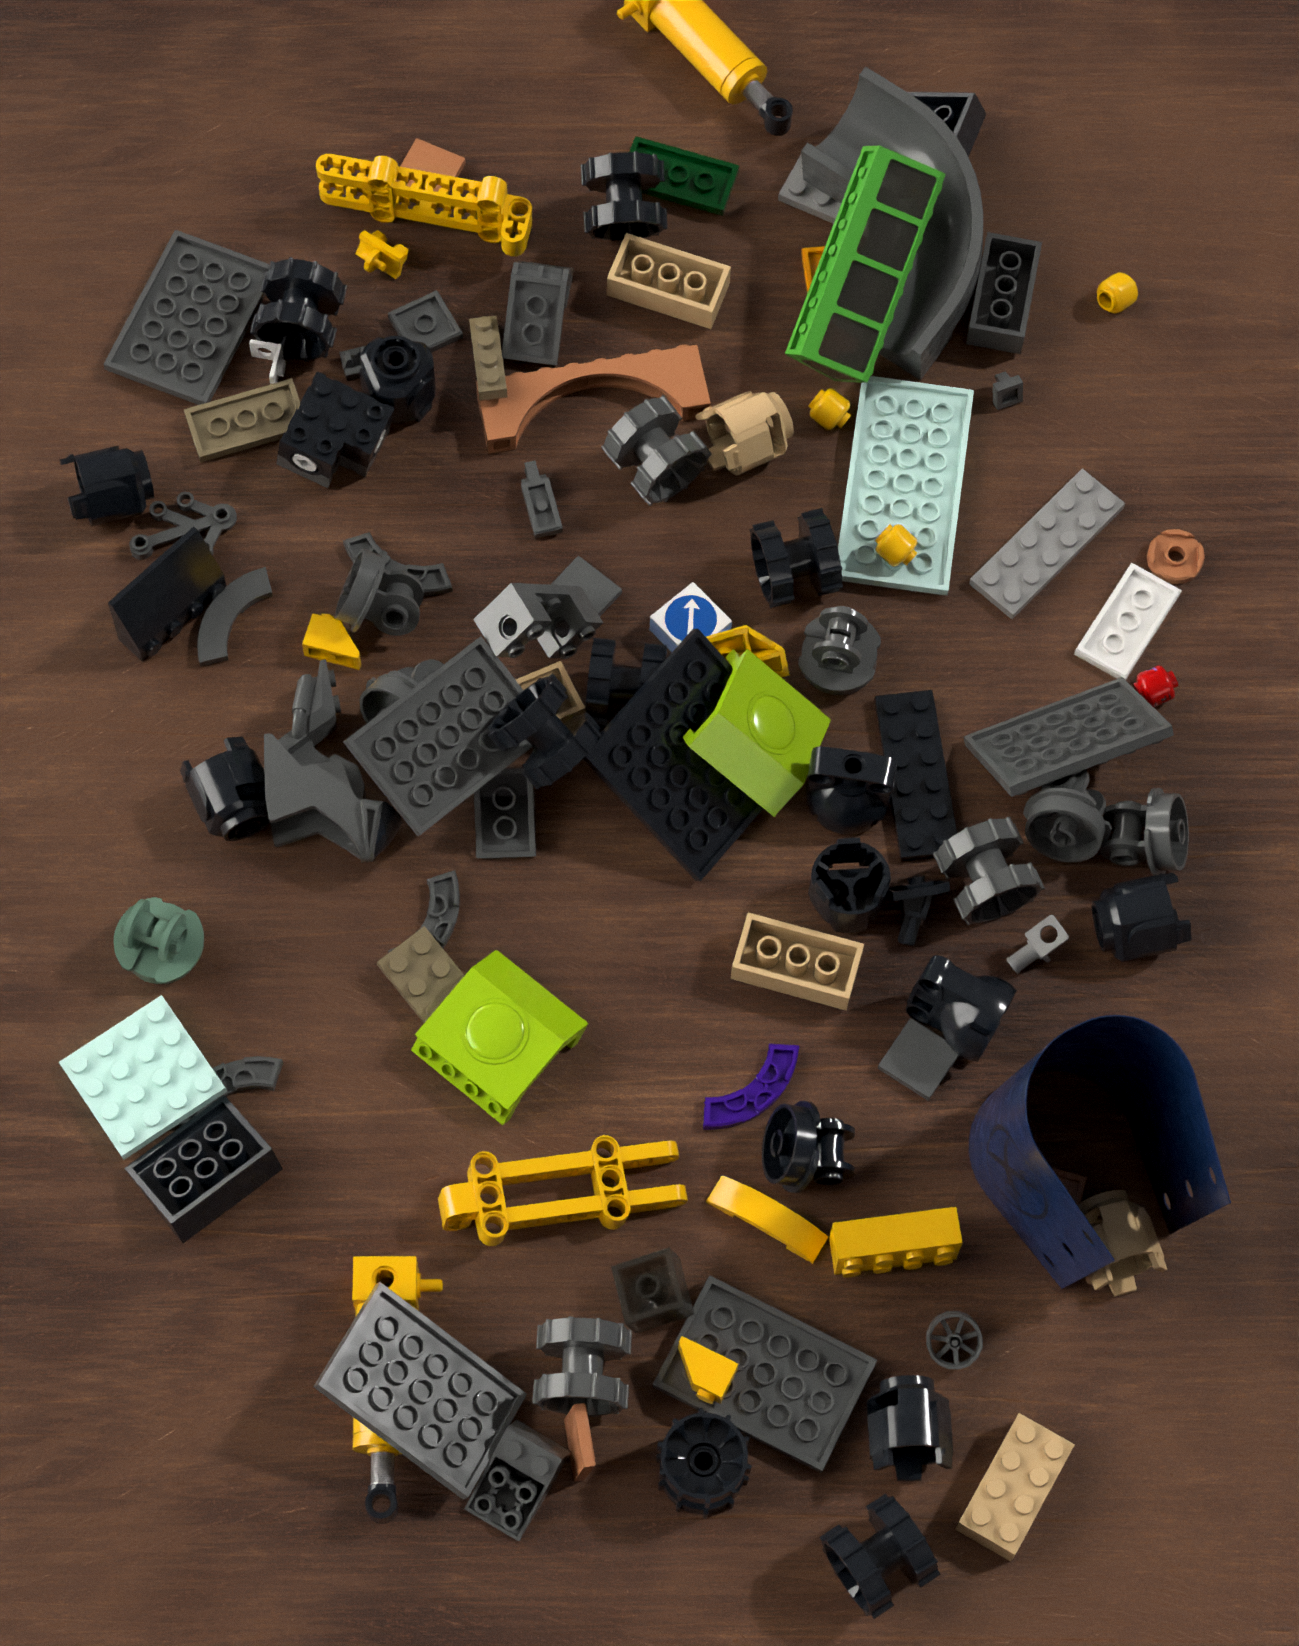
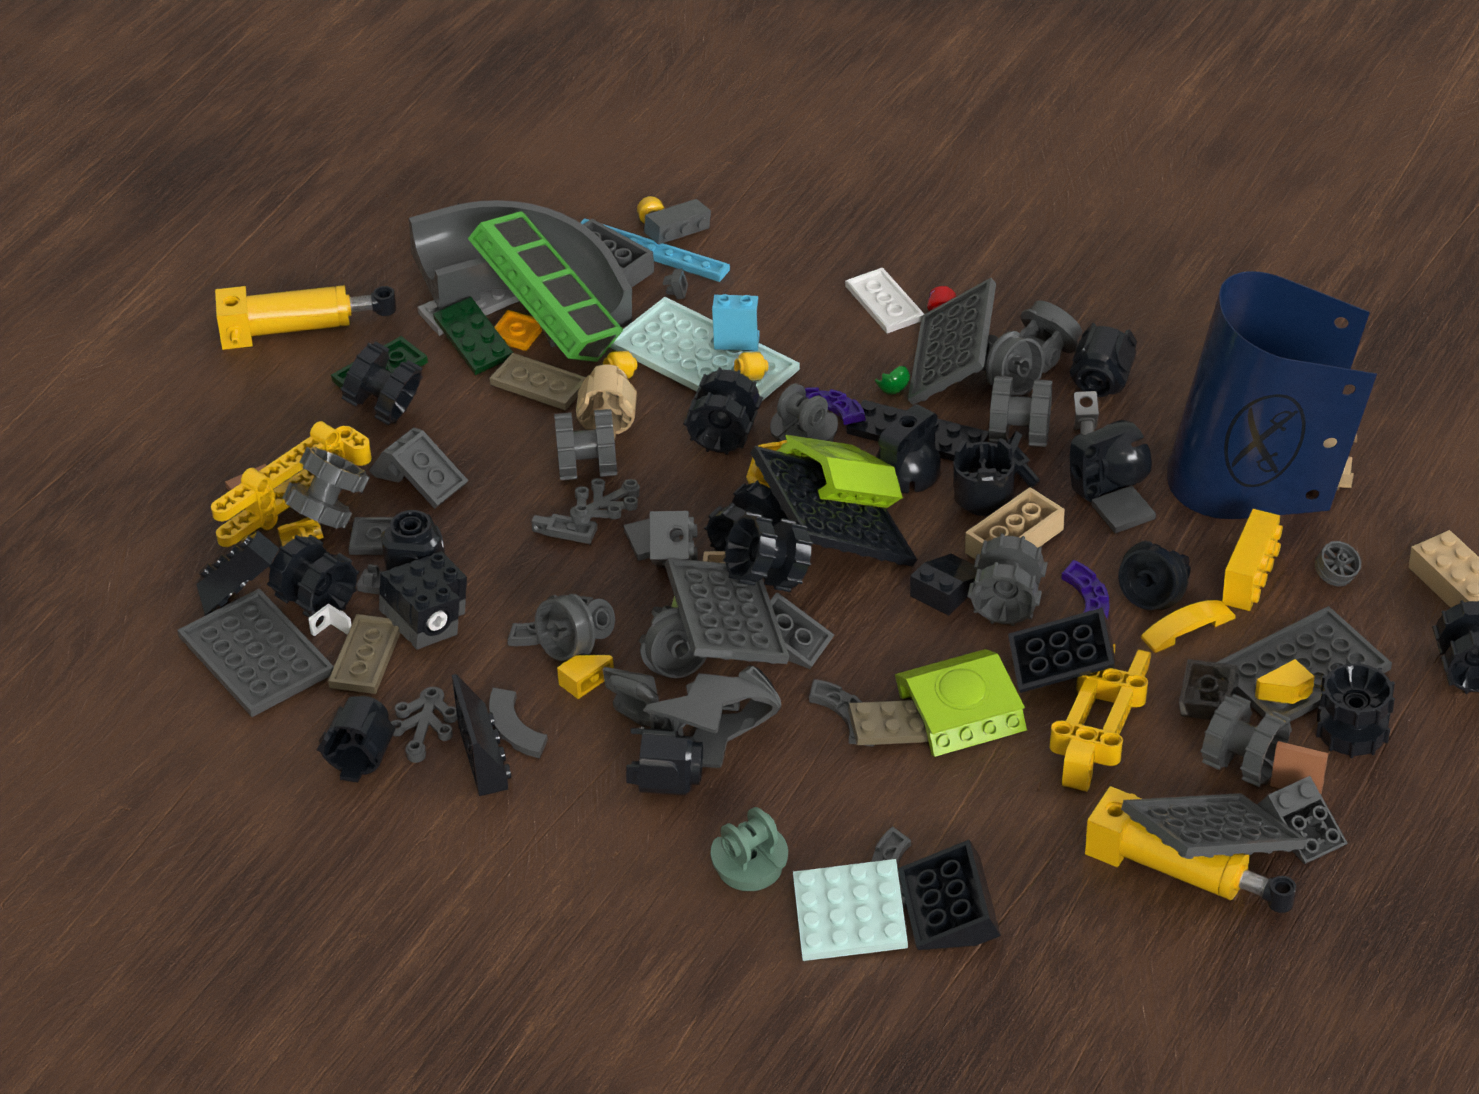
camera: 55 degrees left, 25 degrees down
(256, 233) = (234, 569): none -> black wedge
(427, 241) = (320, 499): none -> dark grey piece
(488, 358) = (438, 504): dark tan plate -> none
(594, 516) = (583, 513): none -> dark grey plant
(612, 1109) = (1062, 650): none -> black slope
(668, 280) = (457, 398): tan brick -> none
(668, 372) = (477, 510): nougat arch -> none
(686, 612) = (718, 484): piece -> none
(687, 930) = (943, 582): none -> black slope
(710, 989) = (1007, 579): none -> dark grey piece
(756, 342) = (538, 381): none -> dark tan plate
(785, 235) = (472, 335): none -> dark green plate
(906, 658) = (846, 408): none -> dark purple tile
(909, 1427) = (1389, 600): black piece -> none
(942, 489) = (735, 322): none -> medium azure panel
(979, 705) = (895, 381): none -> green hair
(1047, 543) = (800, 313): light grey plate -> none
(1058, 332) = (678, 257): none -> medium azure tile
(1112, 331) = (677, 221): none -> dark grey brick
(1170, 570) = (845, 258): nougat tile -> none

